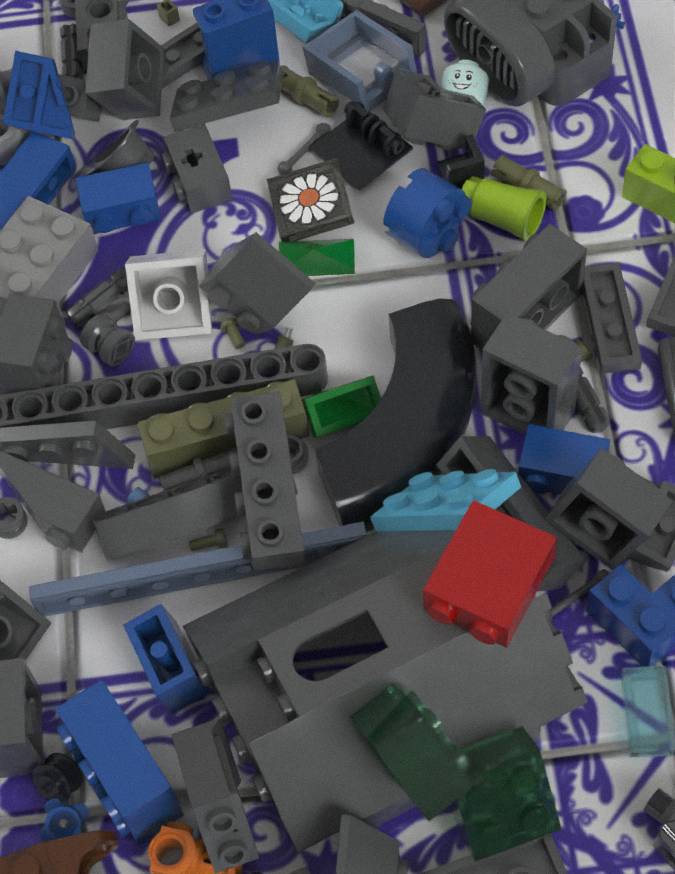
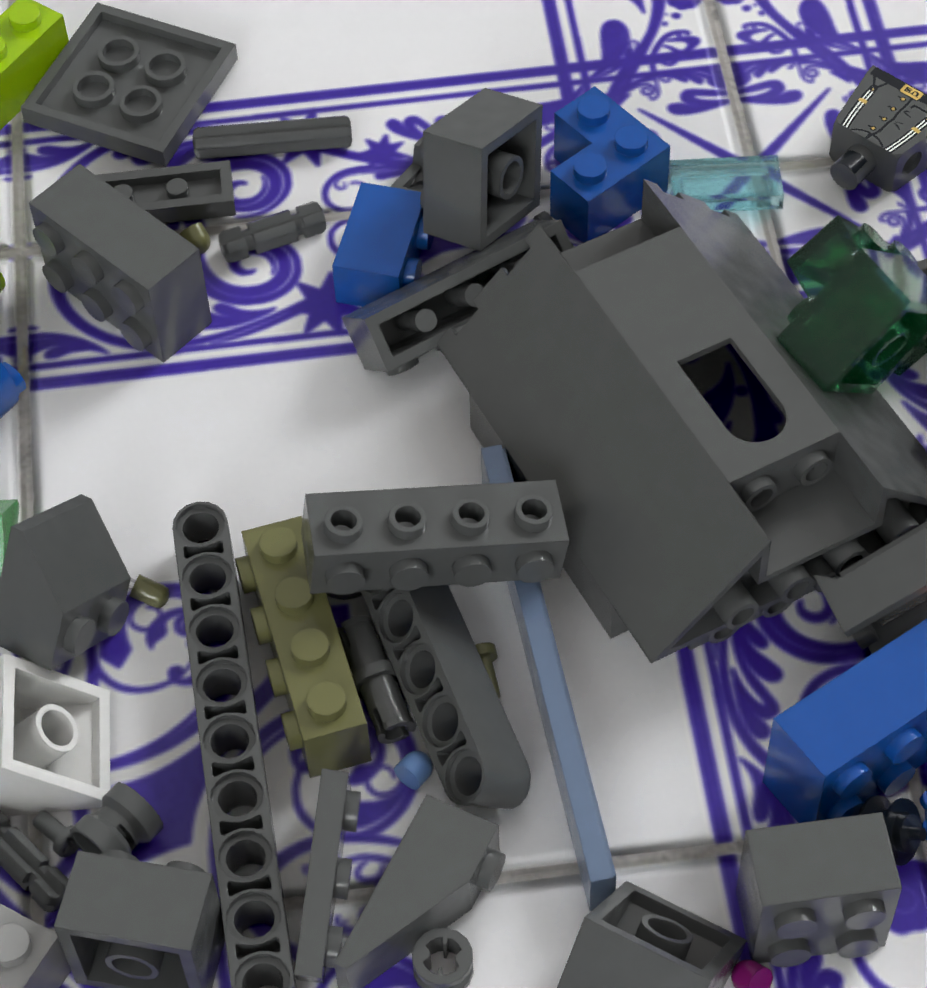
camera: 95 degrees left, 5 degrees down
(165, 658) = (698, 687): blue brick -> none
(230, 327) = (114, 657): olive piece -> none
(341, 406) = (259, 492): green slope -> none
(415, 418) = (286, 408): black brick -> none
(443, 500) = (473, 330): medium azure plate -> none
(489, 574) = (635, 214): red brick -> none
(529, 376) = (276, 242): dark grey brick -> none

